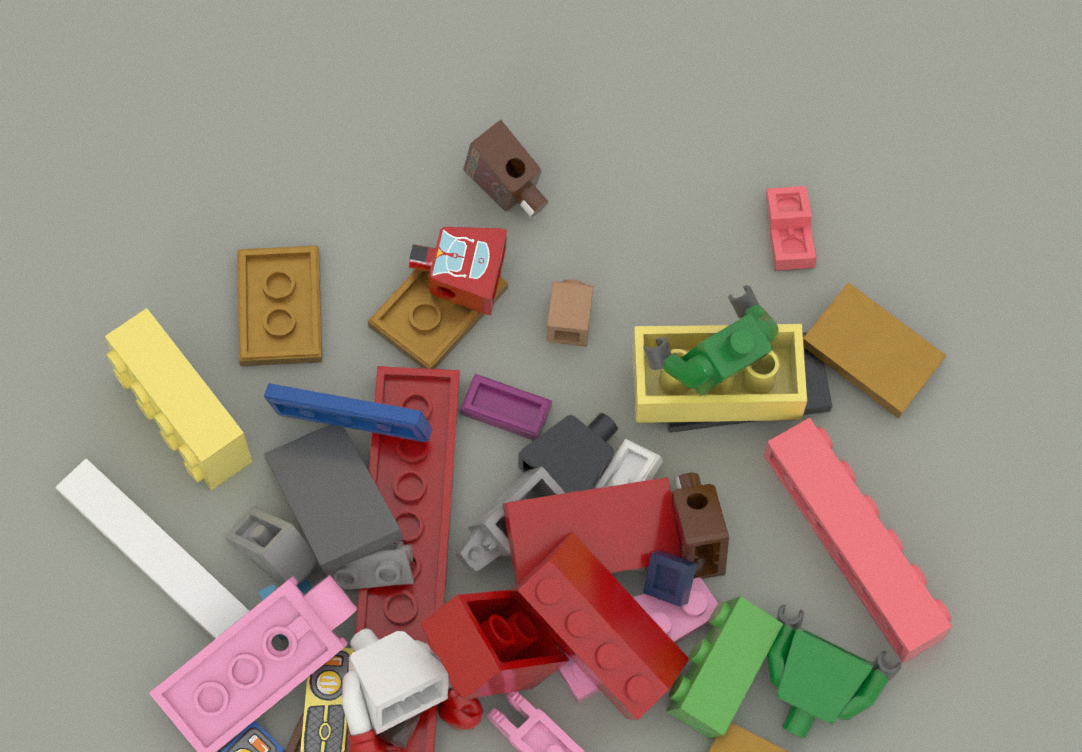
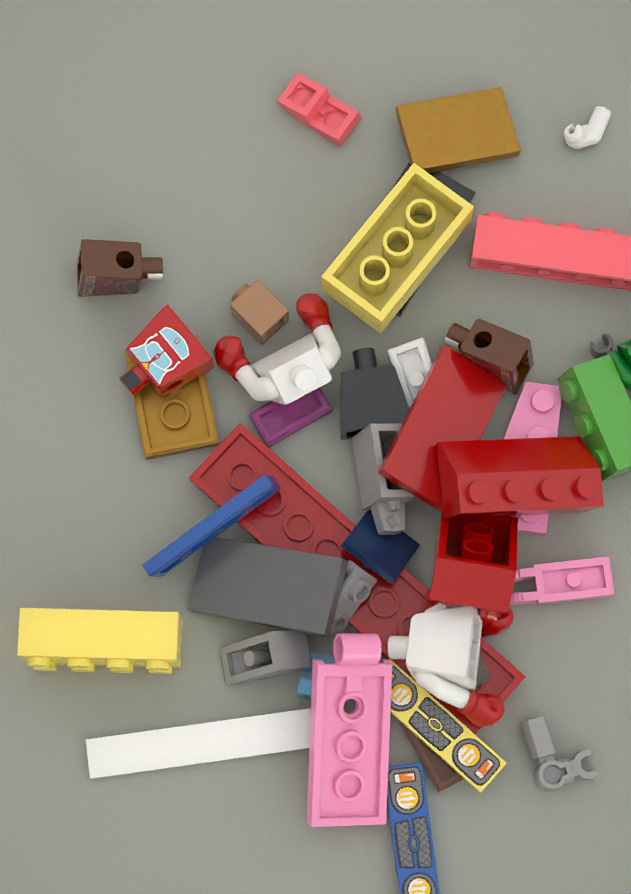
camera: 50 degrees left, 10 degrees up
(279, 306) = (77, 510): pearl gold tile -> none
(437, 567) = (381, 553): none -> dark blue piece
(543, 374) = (292, 369): none -> white torso
(669, 578) = (516, 402): dark blue plate -> none
(723, 352) = (402, 232): green torso -> none
(973, 461) = (588, 134): none -> white arm

